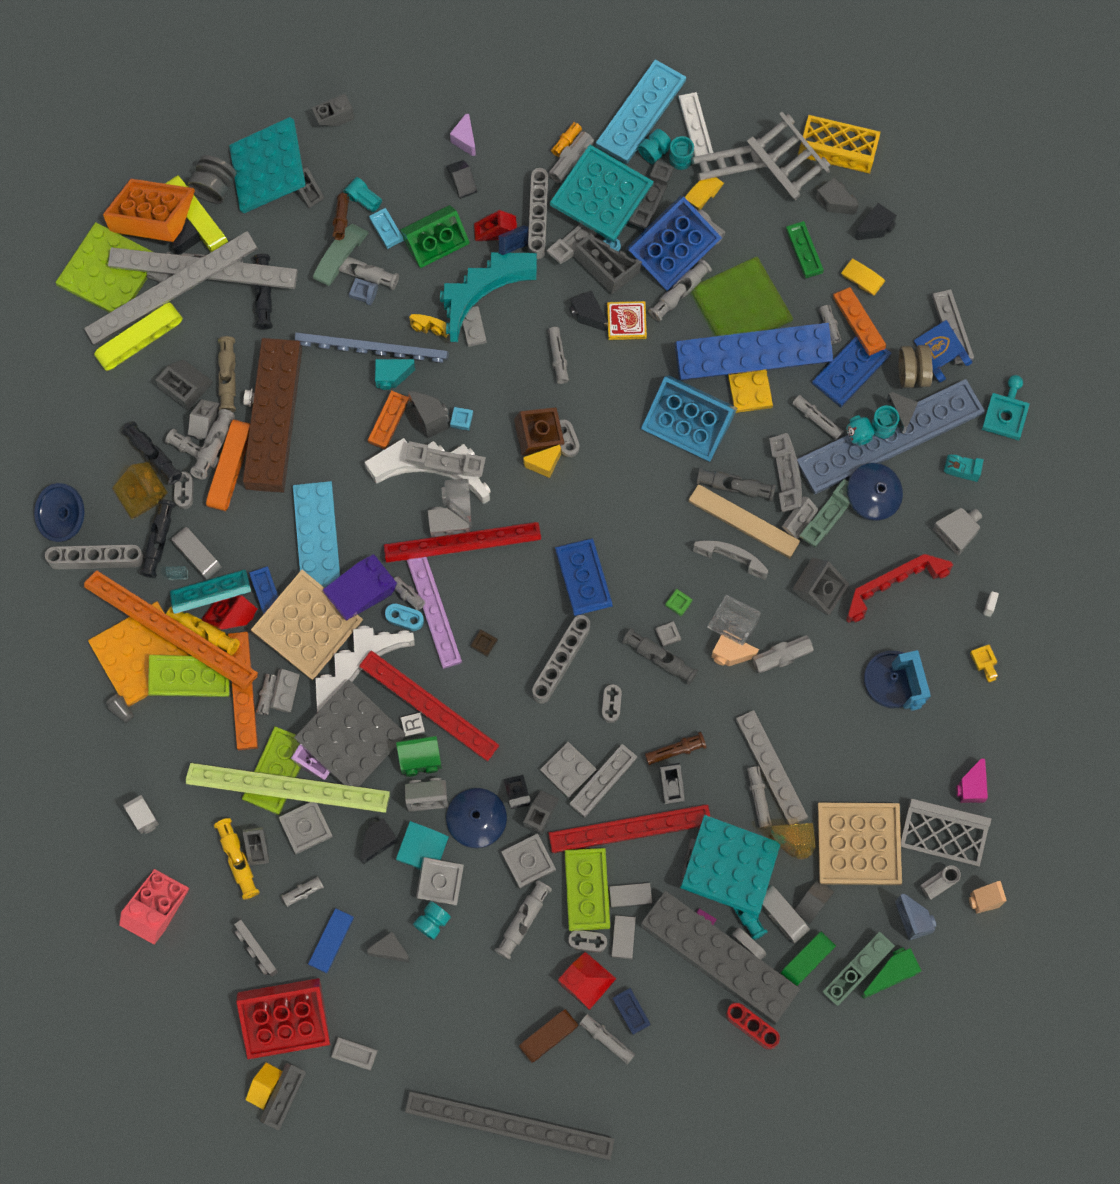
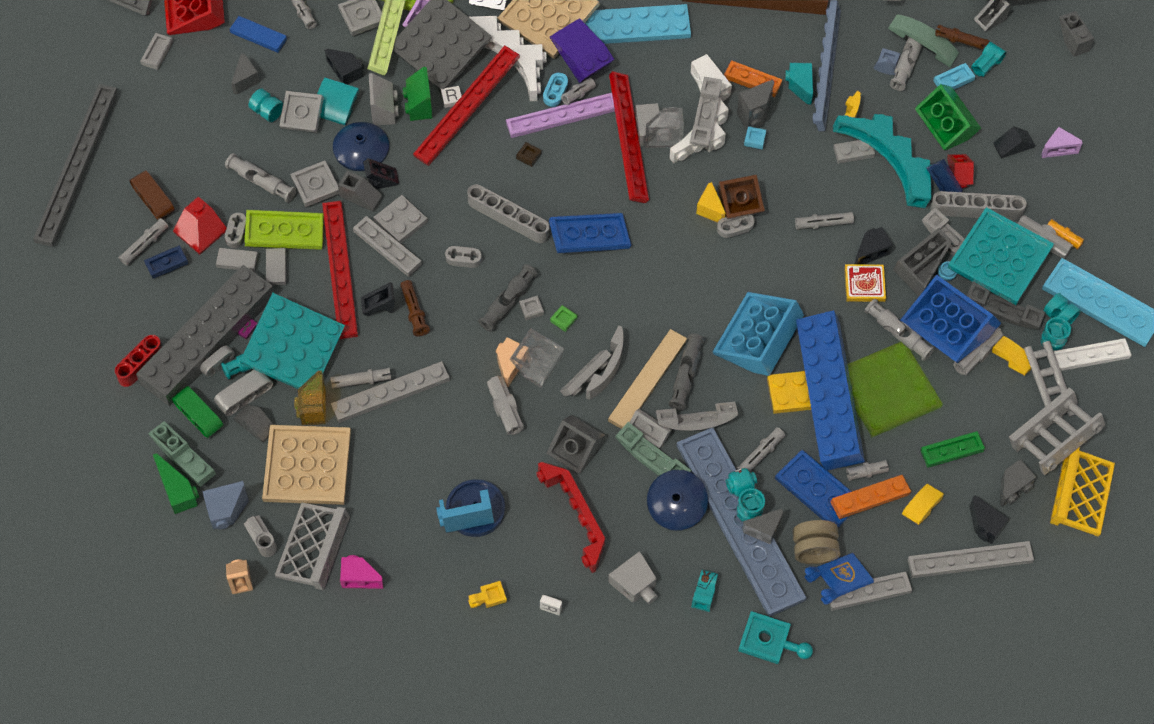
camera: 90 degrees right, 10 degrees down
(743, 578) = (586, 373): none -> light grey plate
(915, 240) = (970, 559): none -> light grey plate

